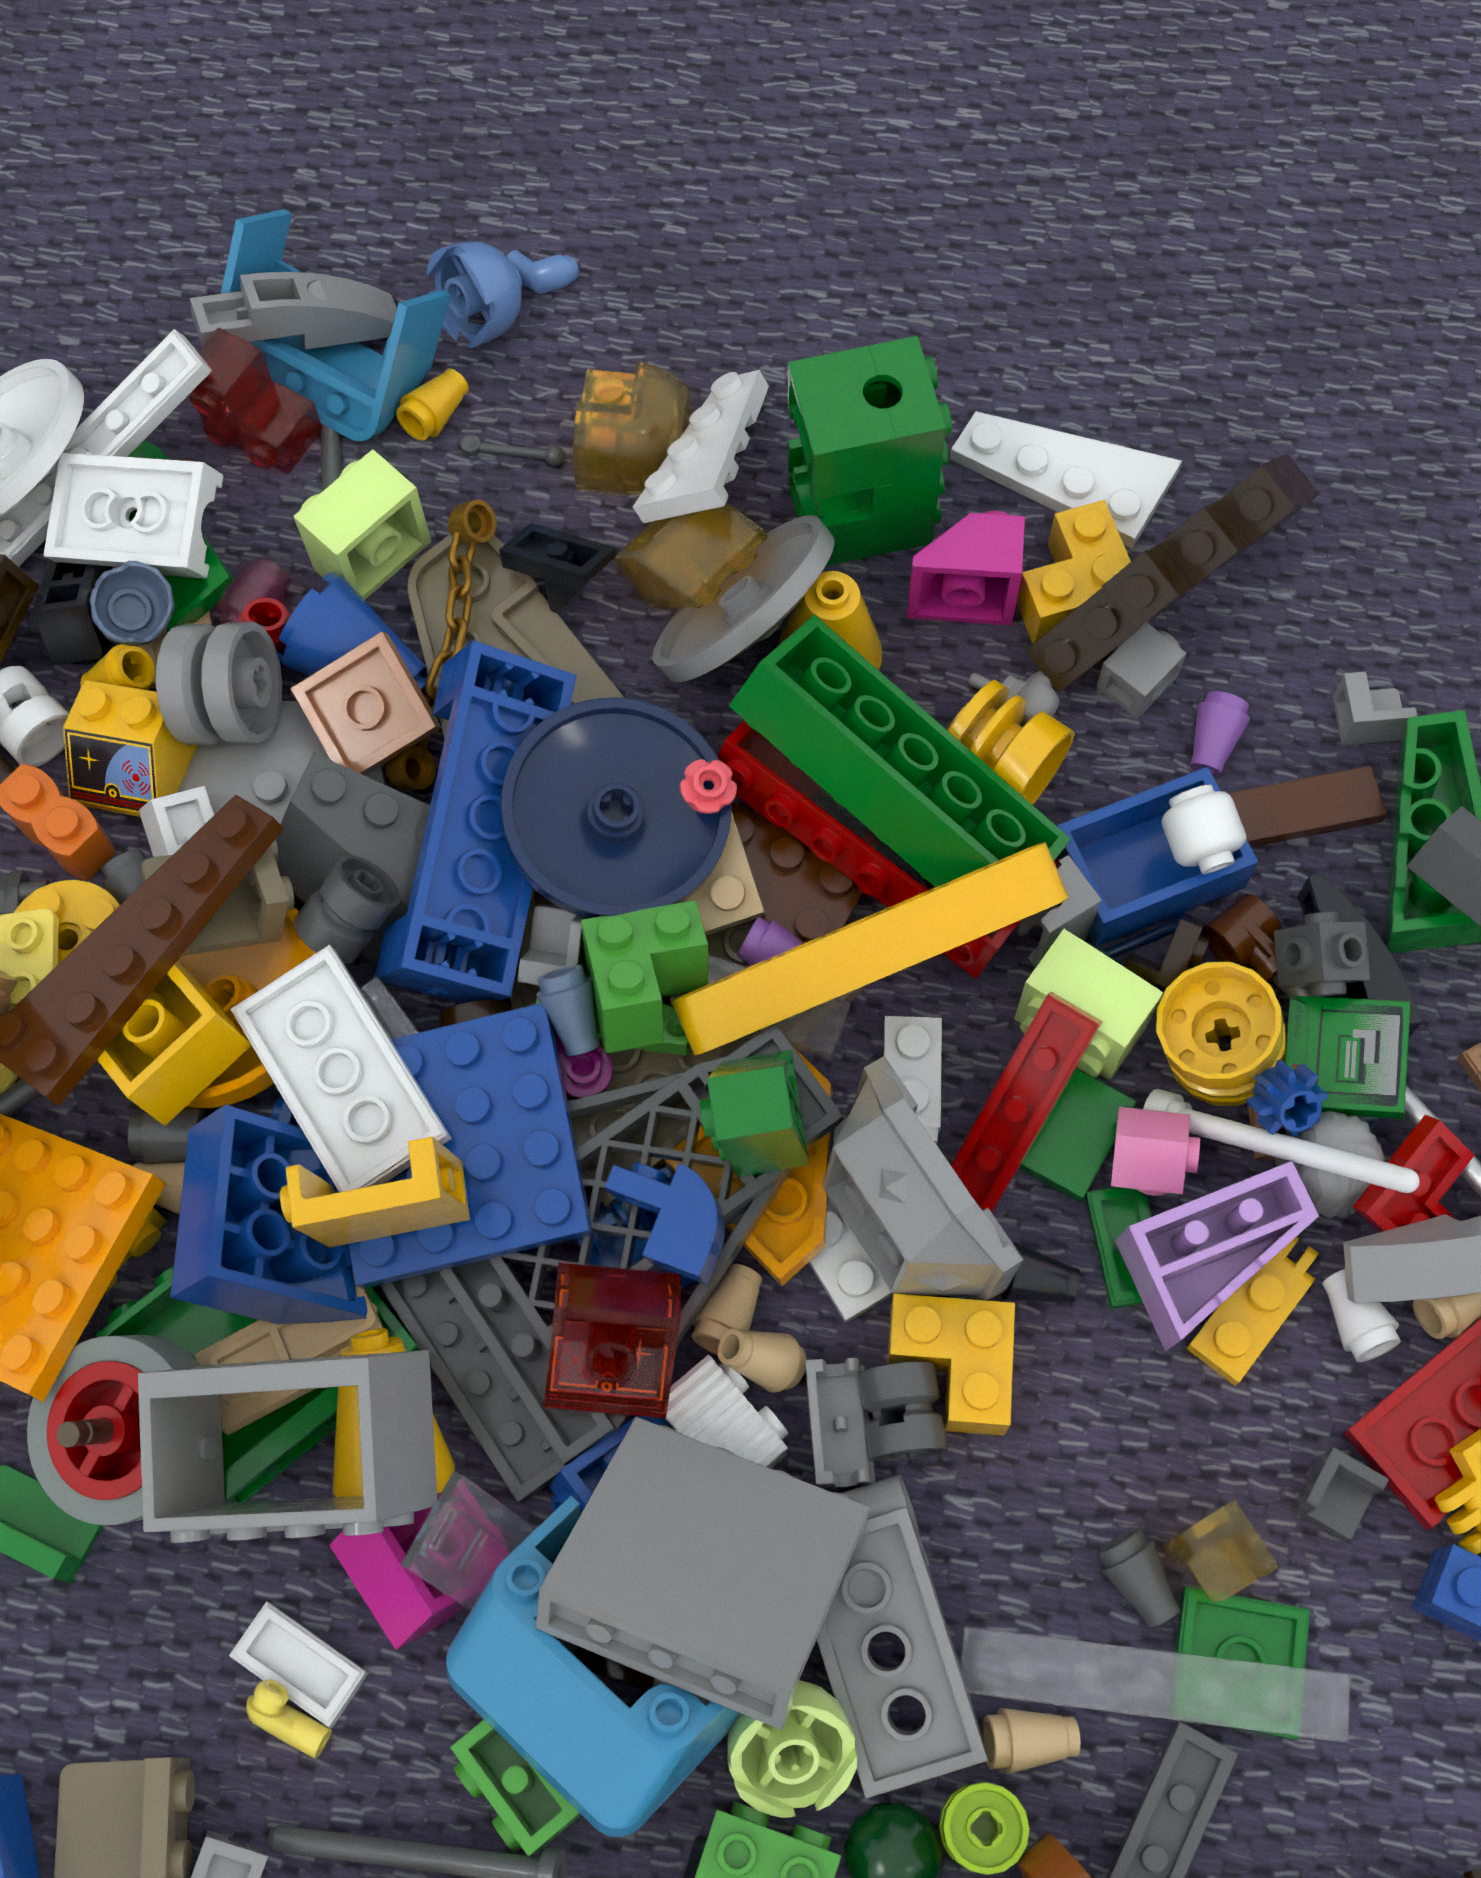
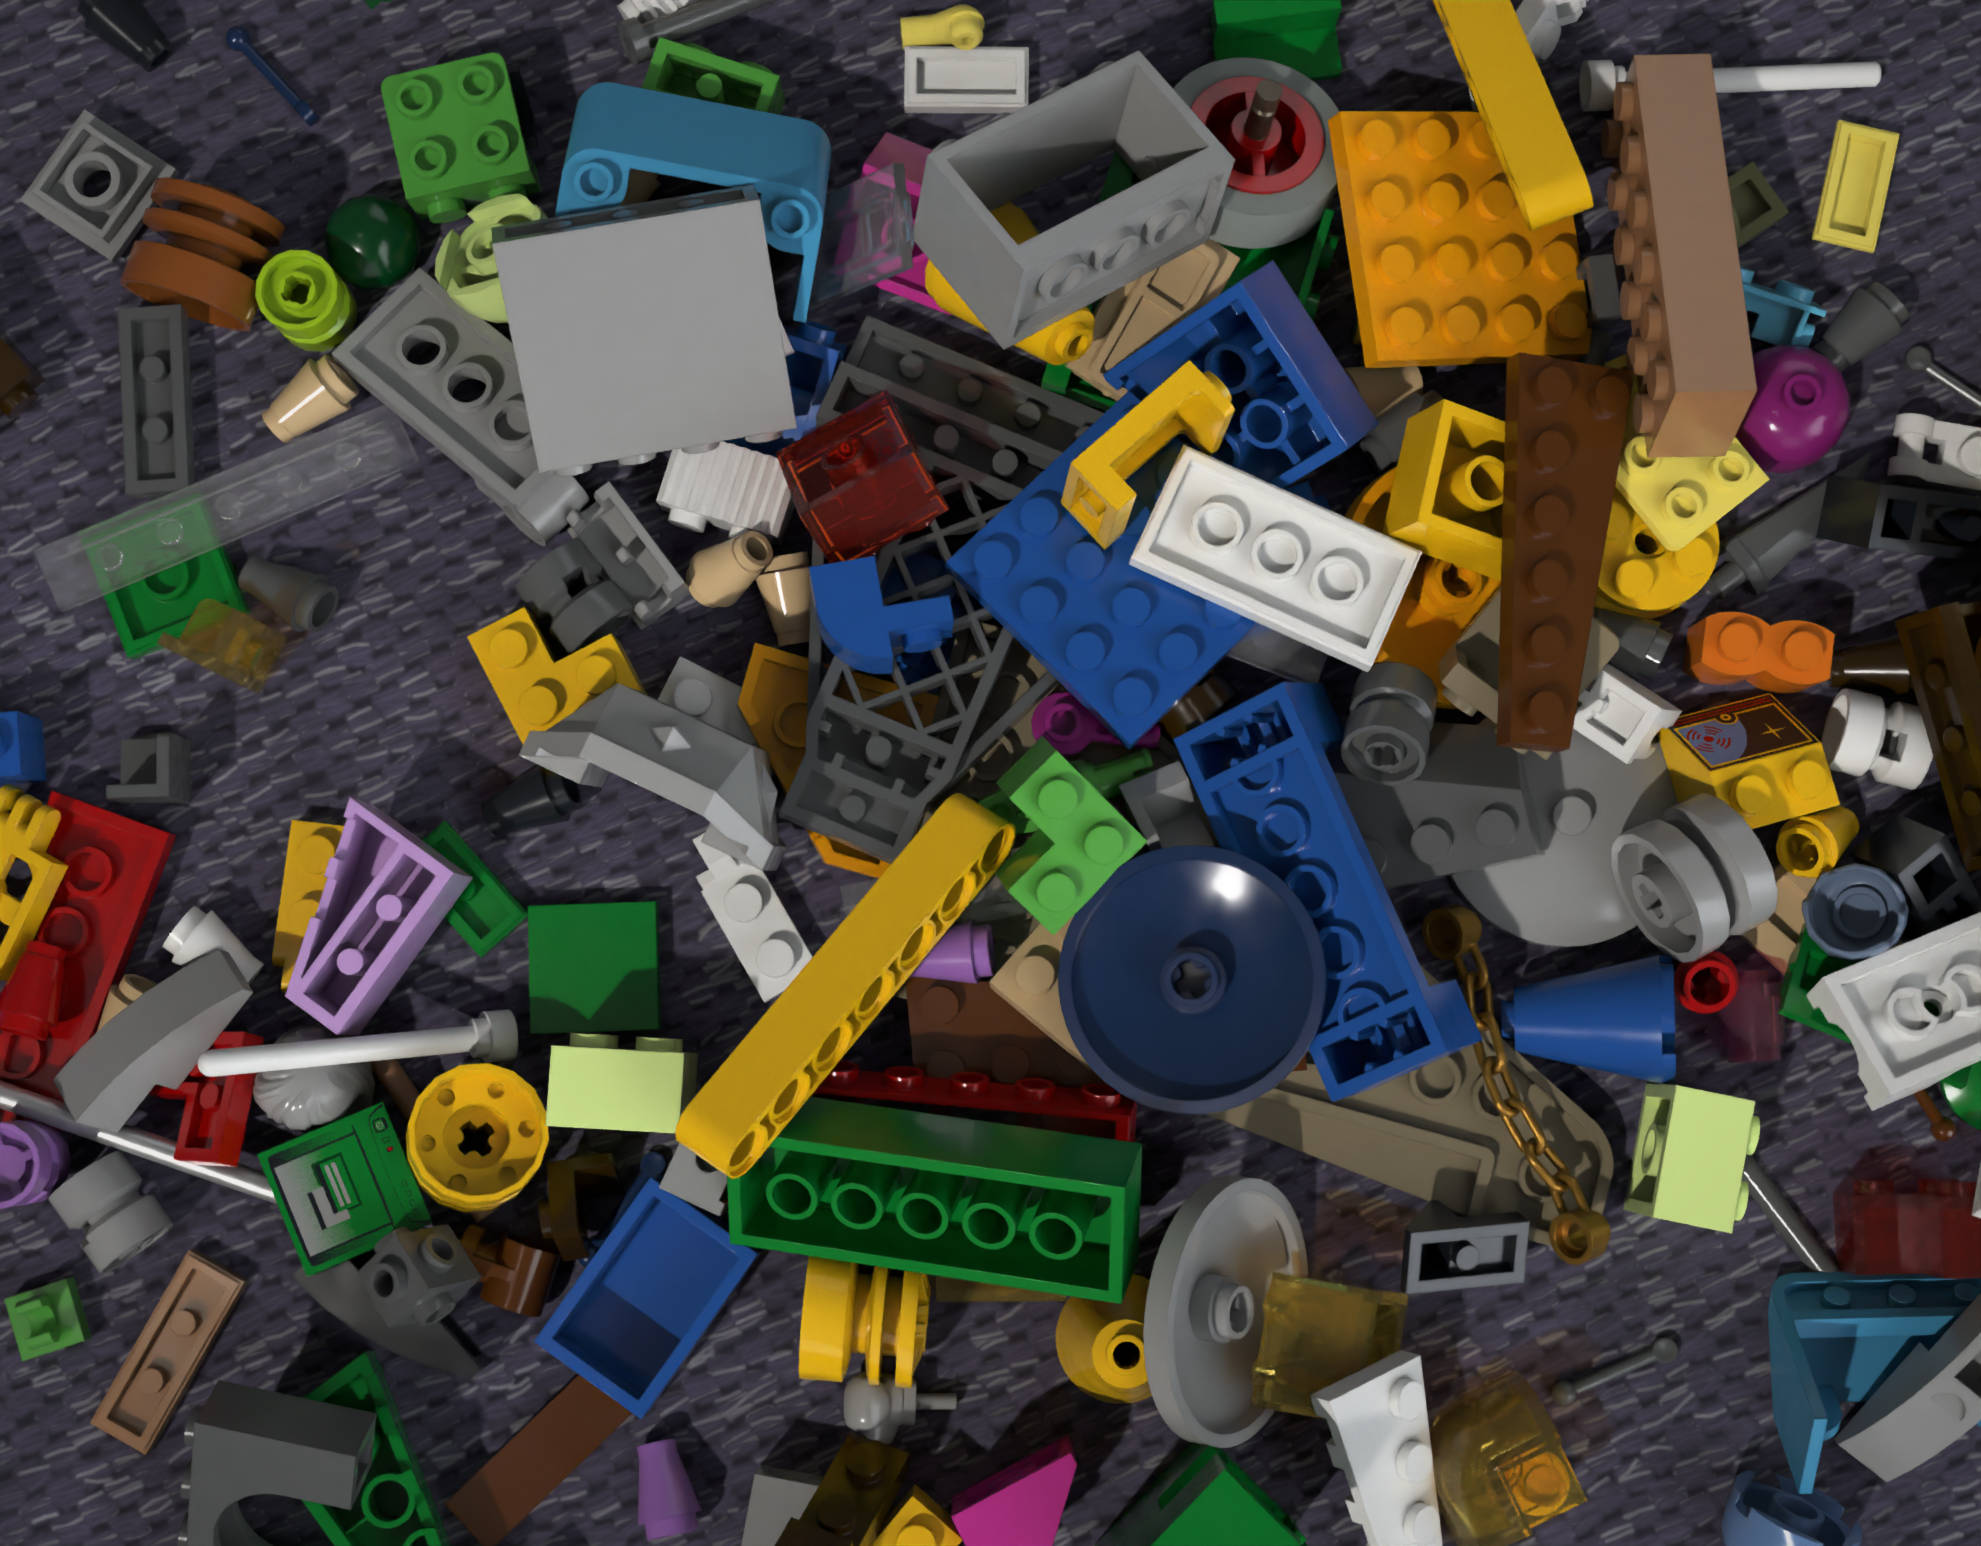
camera: 145 degrees right, 15 degrees up
(366, 706) = (1531, 950): nougat plate -> none
(431, 404) = (1736, 1368): yellow cone -> none
(570, 1008) = (1109, 762): sand blue cone -> none
(706, 800) = (1130, 1055): coral plate -> none
(756, 1114) = (850, 745): green wedge -> none
(1023, 1099) = (628, 942): red tile -> none
(1153, 1151) = (481, 982): bright pink brick -> none
(1203, 829) = (601, 1333): white head -> none
(1287, 1098) = (373, 1096): blue gear -> none

